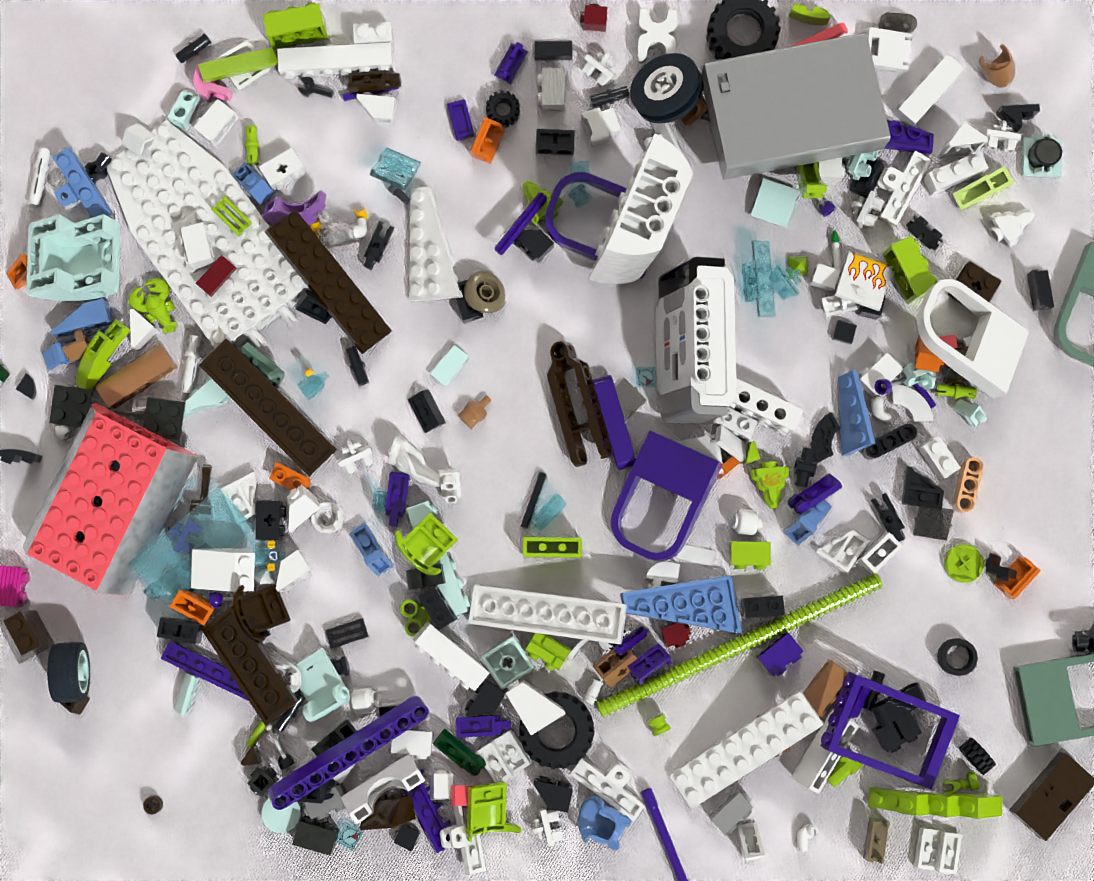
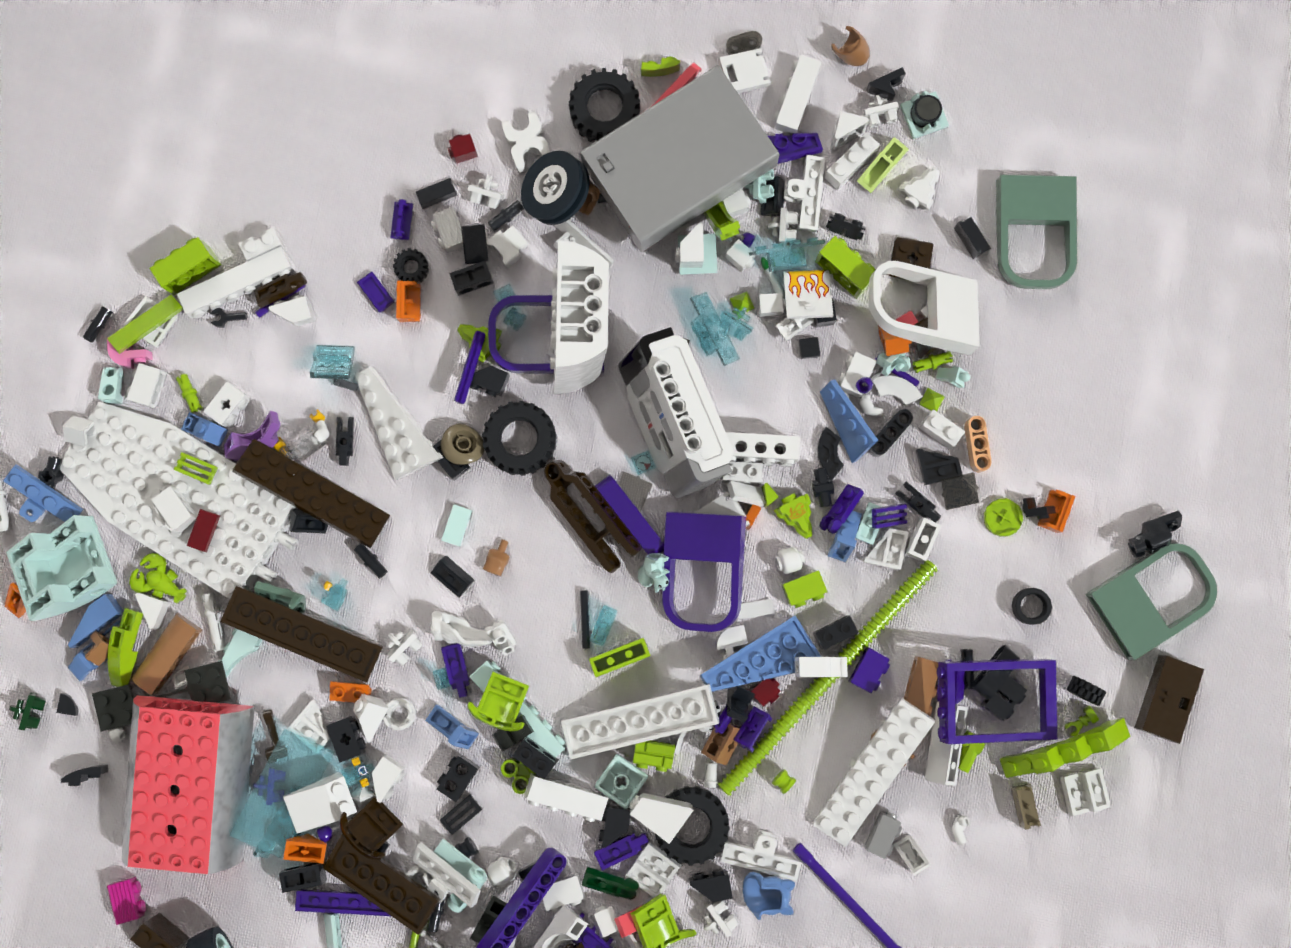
camera: 20 degrees left, 0 degrees up
(311, 684) = (446, 878): none -> white plate
(360, 601) = (460, 779): none -> black brick
(522, 326) = (536, 457): none -> black tyre
(570, 110) = (474, 243): none -> black slope
(615, 481) = (654, 572): none -> light aqua animal
(646, 633) = (737, 703): none -> black slope
(736, 632) = (821, 667): none -> white piece
(771, 195) = (691, 249): none -> white slope
(814, 220) = (739, 256): none -> white brick
(836, 518) = (865, 531): none -> light aqua plate
(856, 238) = (786, 257): none -> clear light blue bracket
(871, 515) = (901, 515): none -> dark purple tile
(940, 426) = (931, 400): none -> lime slope

